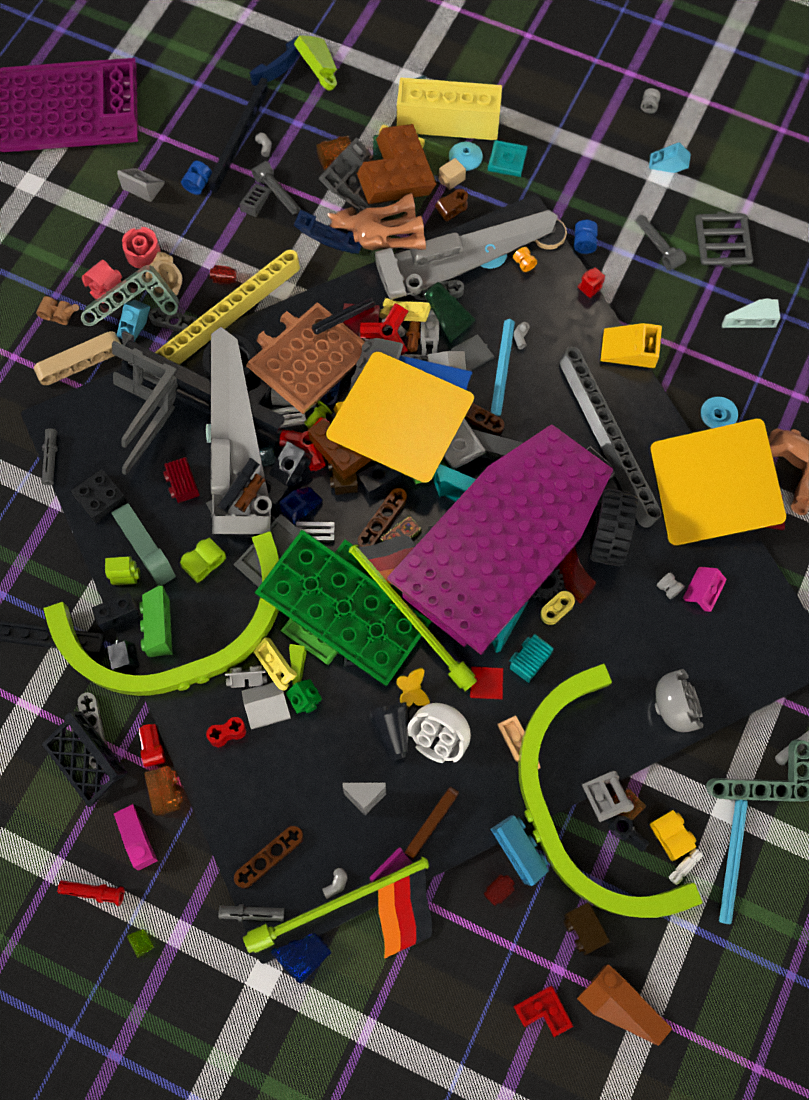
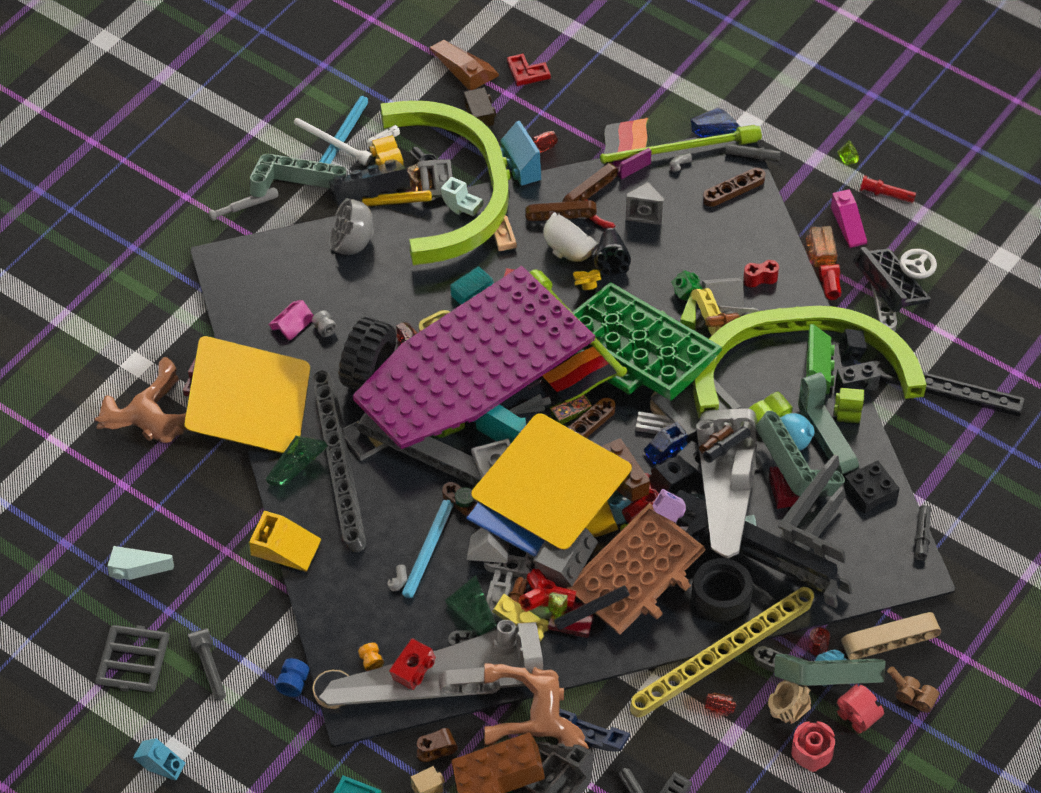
camera: 170 degrees left, 15 degrees down
(52, 778) = (917, 267): none -> white piece
(142, 337) = (818, 640): none -> clear red brick
(161, 470) = (790, 458): none -> sand green beam
(177, 533) = (799, 429): none -> medium azure brick
(260, 649) = (720, 320): none -> dark orange axle
(285, 401) = (669, 505): none -> lavender brick
(373, 315) = (557, 604): none -> clear neon green slope
(420, 783) = (603, 223): none -> red piece
(458, 777) = (569, 210): none -> reddish brown beam
(475, 352) = (455, 571): dark grey piece -> none
(481, 413) = (464, 497): none -> dark green tile
(486, 245) = (413, 653): none -> red brick
(574, 773) = (458, 199): none -> light aqua brick
(592, 282) = (304, 617): red brick -> none
(643, 766) = (398, 198): none -> yellow axle
(649, 427) = (295, 459): none -> clear green wing
(677, 781) = (370, 182): none -> black wedge
(699, 827) = (362, 156): none -> white piece
(719, 406) = (213, 465): medium azure dish -> none

